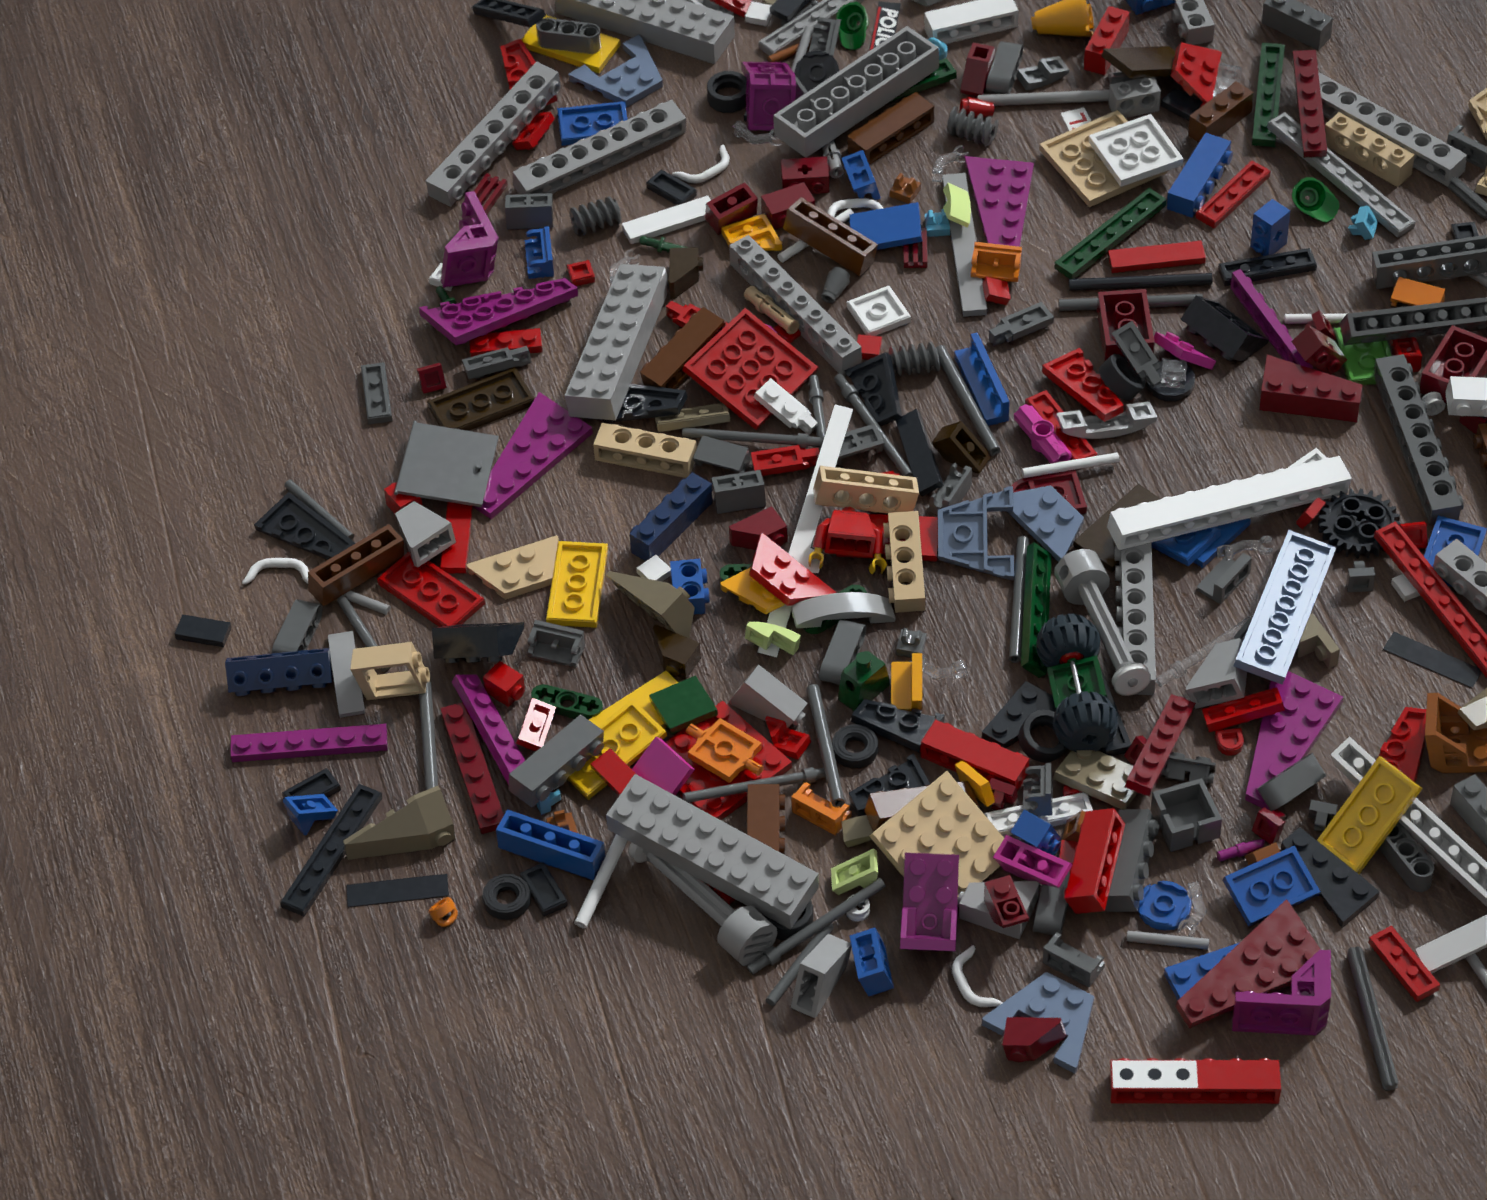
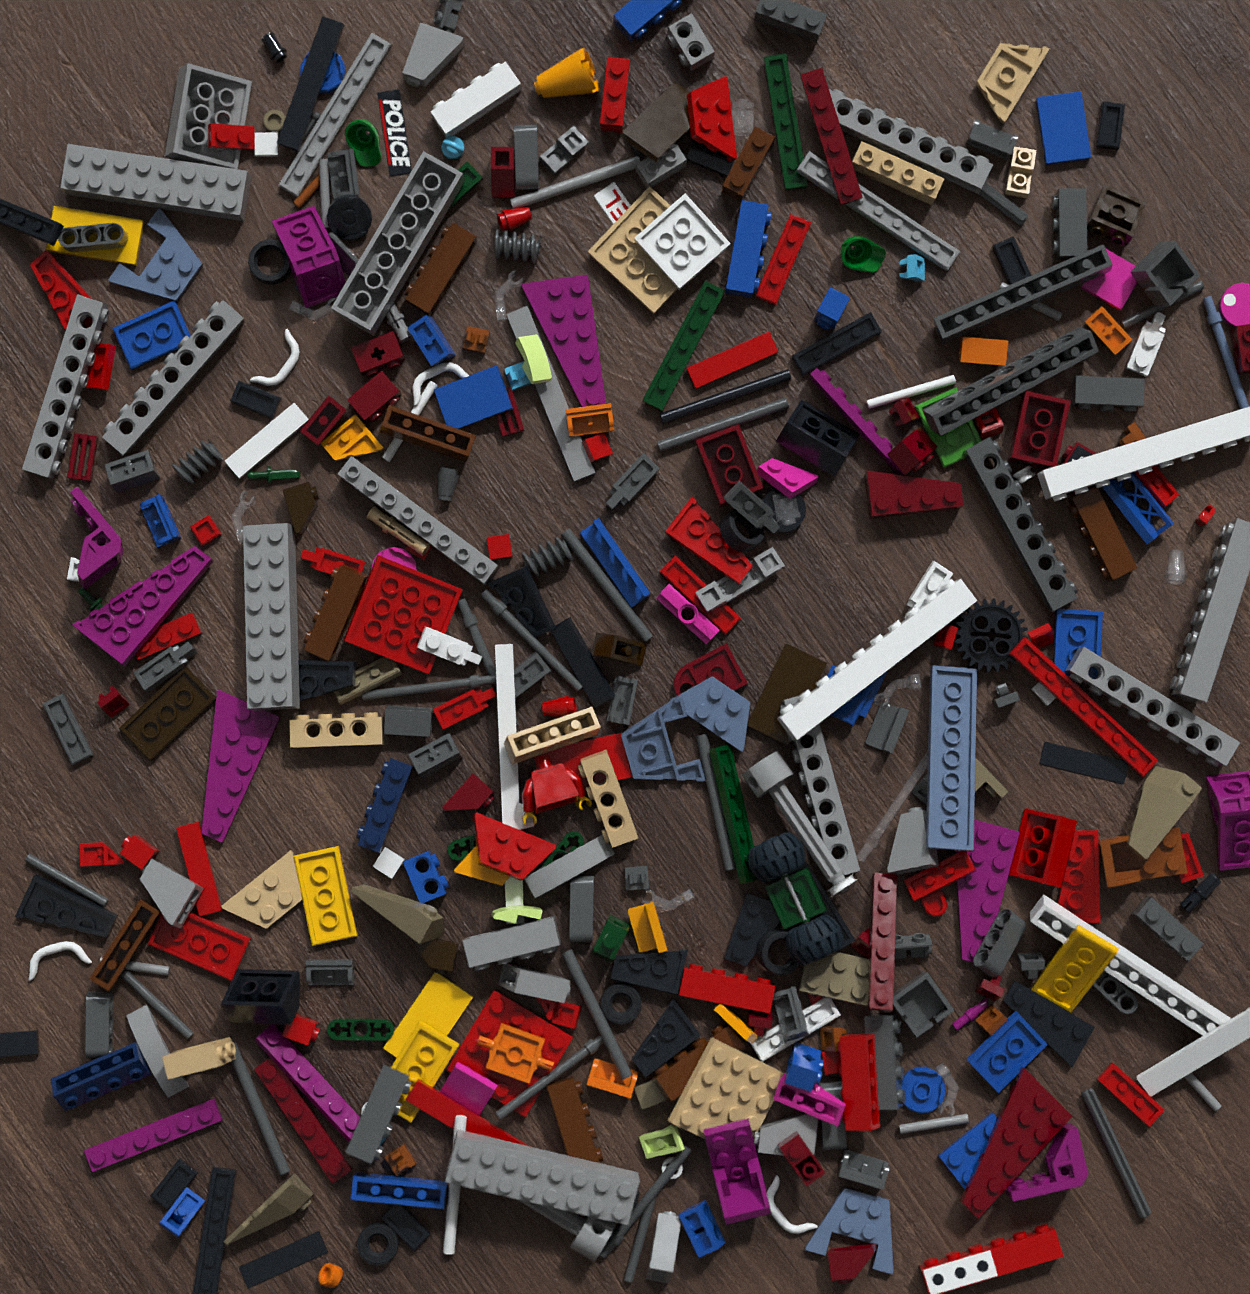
camera: 20 degrees left, 35 degrees up
(360, 497) = (97, 854): none -> red slope
(446, 463) = (162, 804): dark grey piece -> none
(535, 725) = (343, 1064): plate -> none
(683, 704) = (463, 1010): dark green tile -> none
(738, 649) = (511, 942): none -> light grey brick
(878, 311) = (496, 500): white tile -> none
(1070, 465) = (720, 641): white bar -> none
(1367, 712) = (1043, 847): none -> red slope

